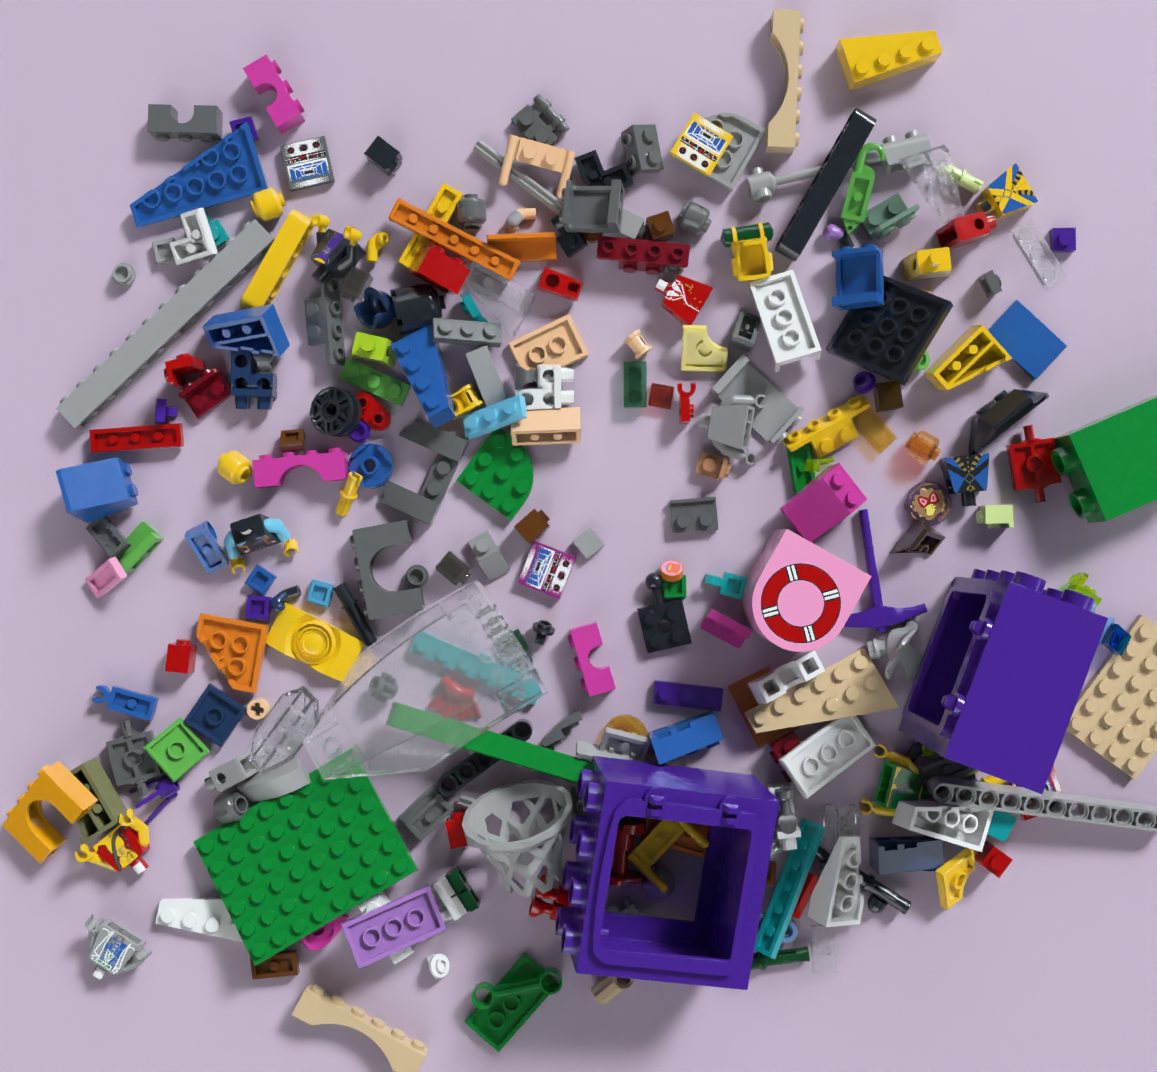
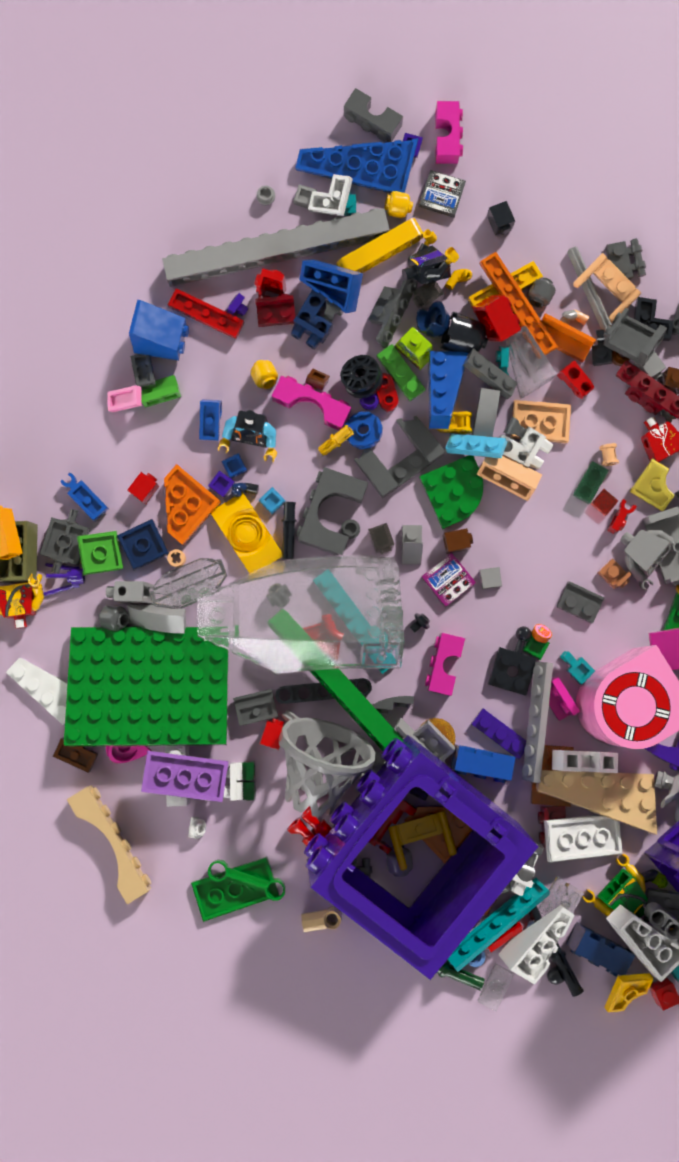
camera: 30 degrees right, 5 degrees down
(719, 670) = (537, 722): none -> light grey plate

